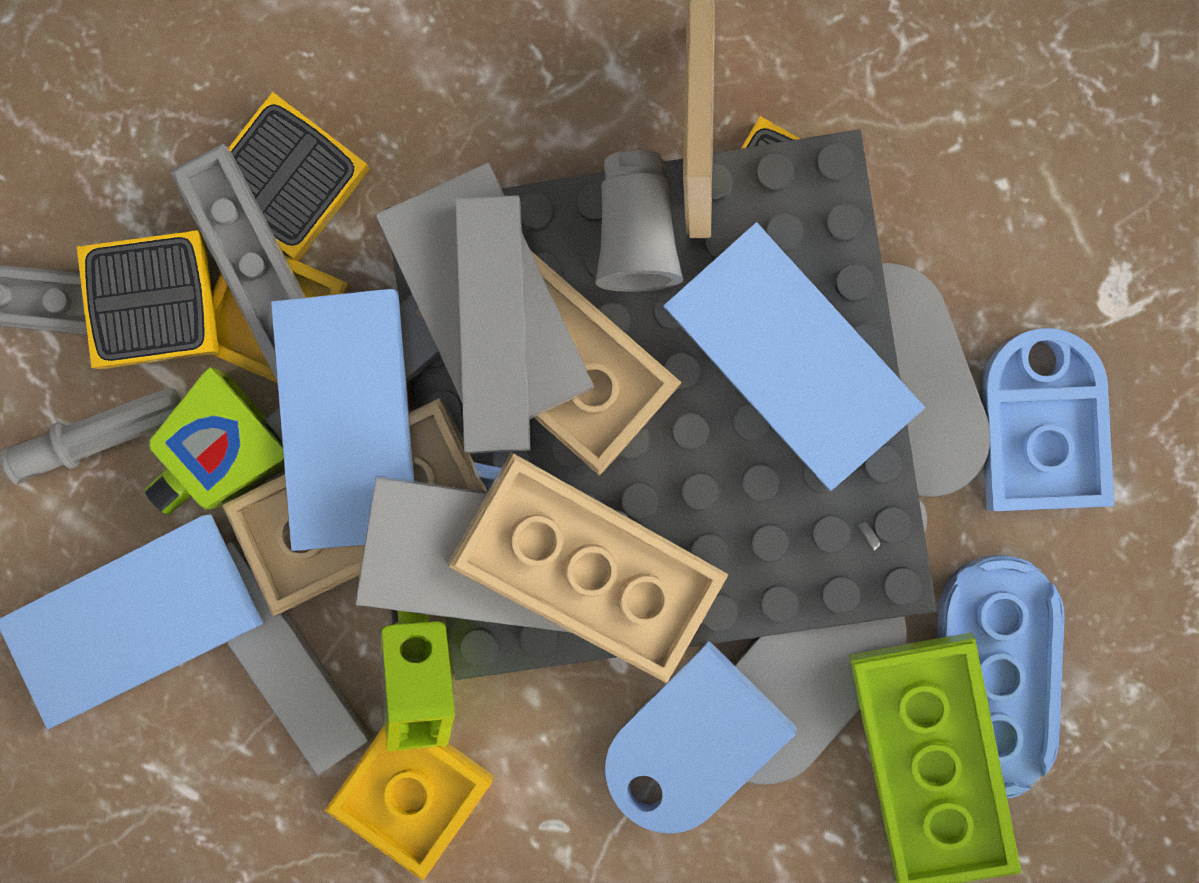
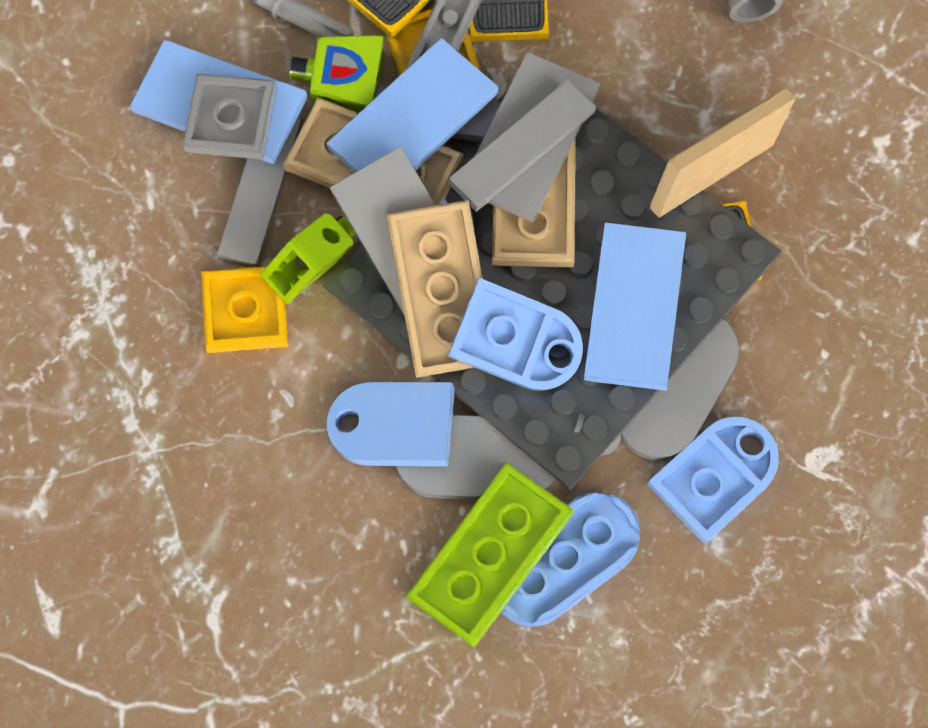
camera: 45 degrees right, 15 degrees down
(159, 632) = (230, 116): none -> light grey tile
(636, 225) = (630, 177): light grey plant -> none
(719, 536) = (513, 338): none -> light blue tile

